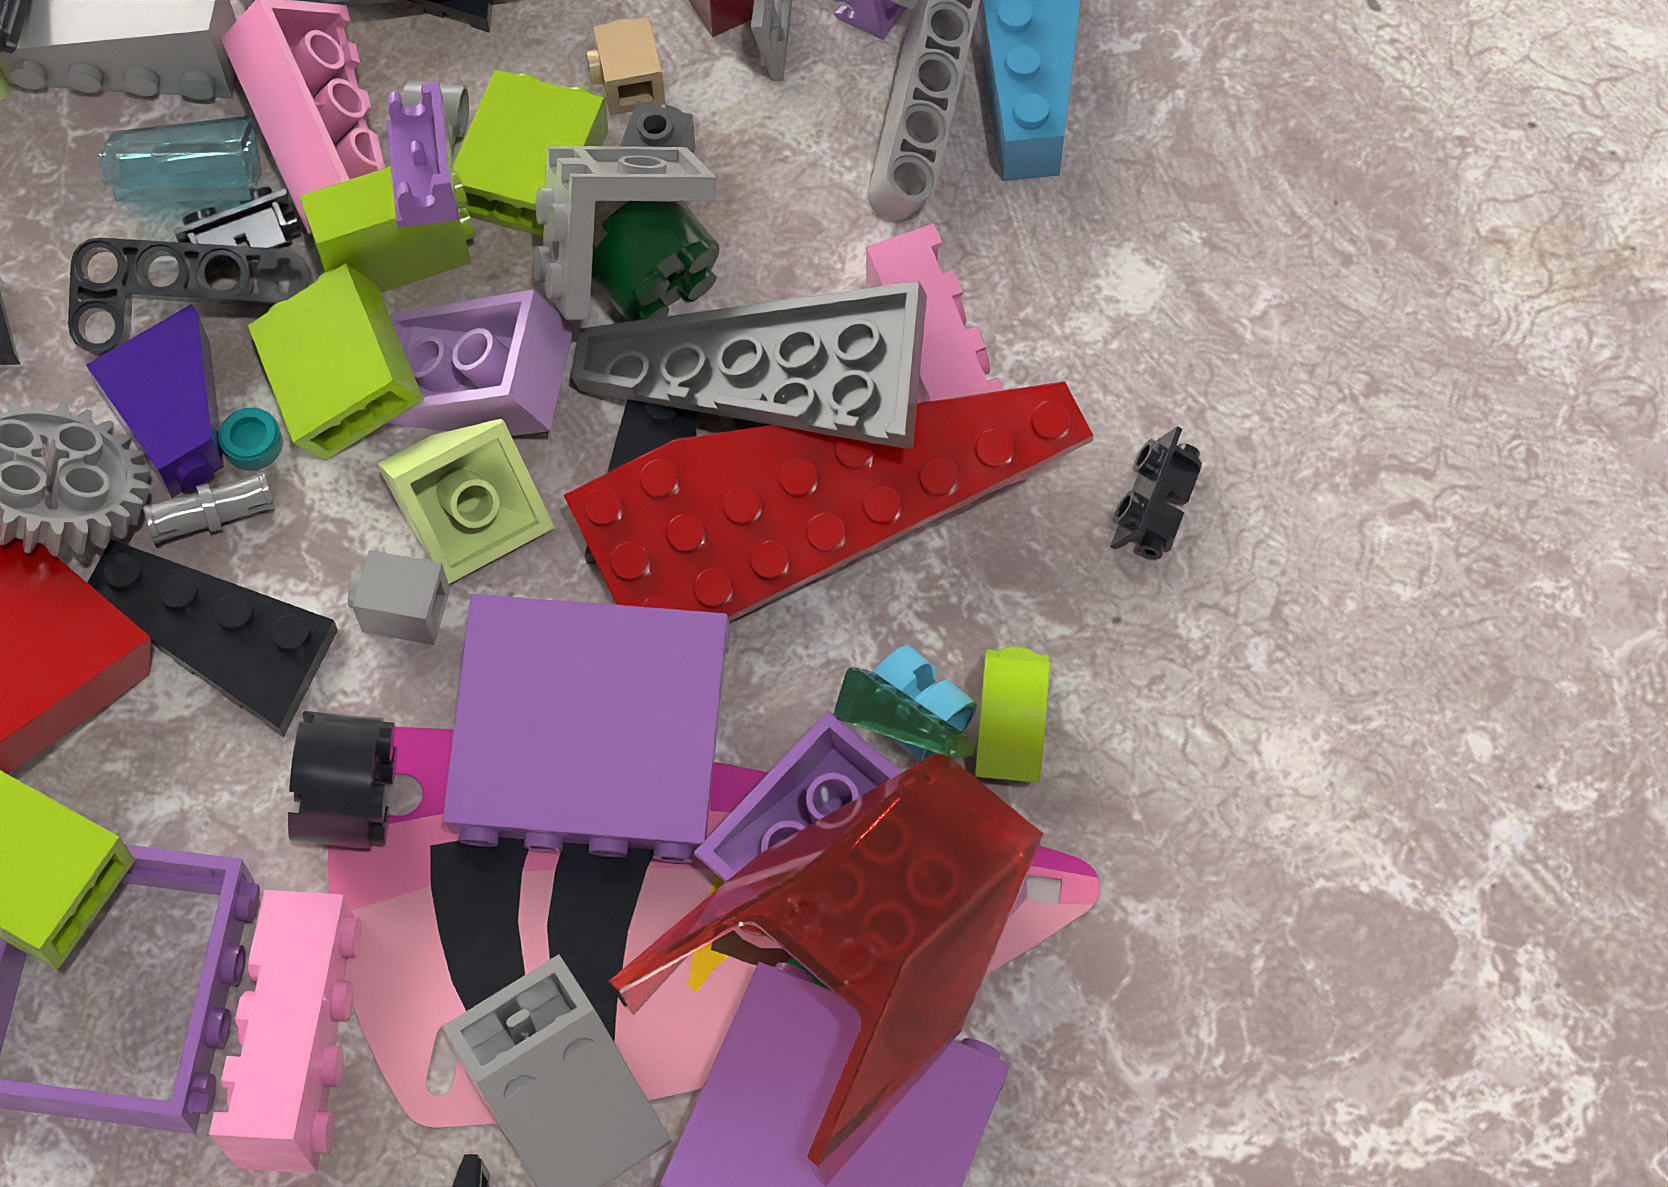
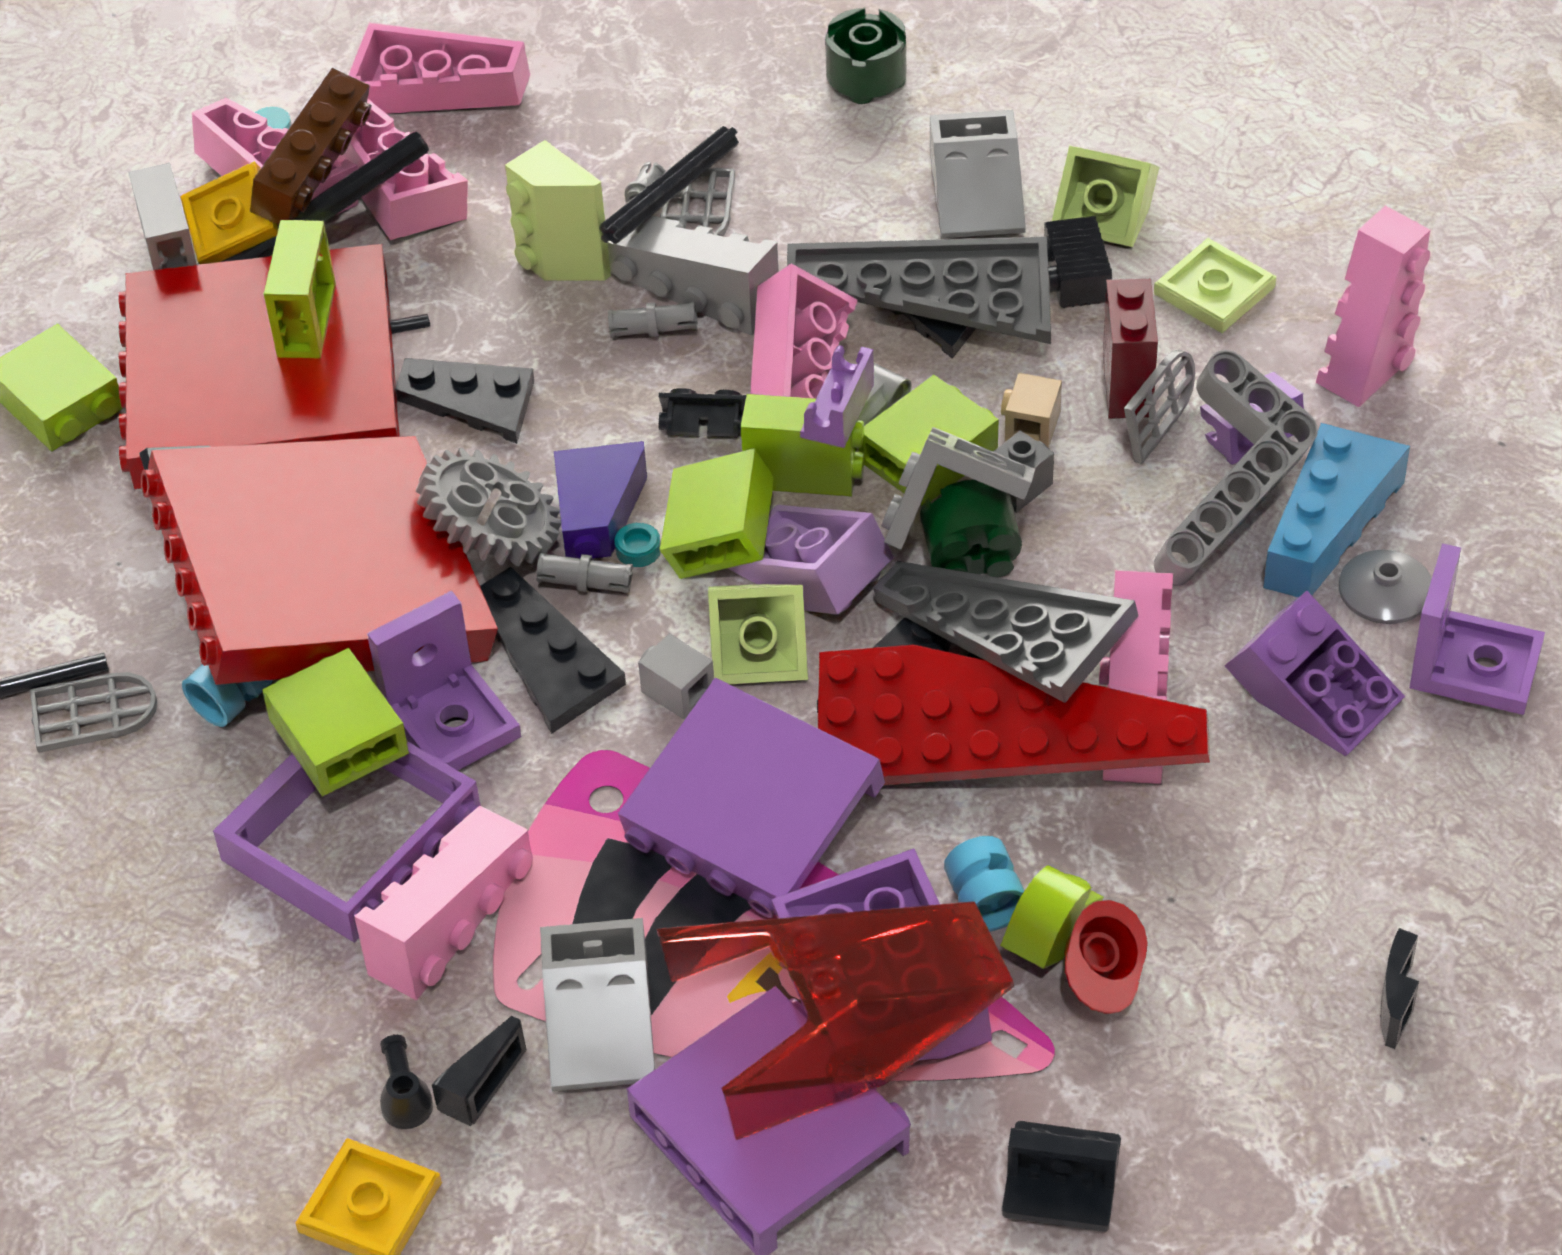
camera: 30 degrees right, 15 degrees down
(93, 131) = (652, 319): none -> light grey pin
(100, 741) = (439, 684): none -> medium lavender bracket
(183, 161) = (692, 355): clear light blue slope -> none
(190, 286) = (652, 430): black beam -> none
(342, 779) = (567, 761): black brick -> none
(883, 708) = (953, 862): clear green slope -> none
(1103, 738) = (1106, 956): none -> red piece
(1125, 270) = (1315, 676): none -> medium lavender slope
(1129, 139) = (1384, 586): none -> light grey dish
(1162, 472) = (1232, 838): black hinge -> none
(1197, 1029) = (1061, 1175): none -> black bracket
(1256, 152) = (1453, 641): none -> medium lavender bracket
(1429, 631) = (1398, 990): none -> black slope

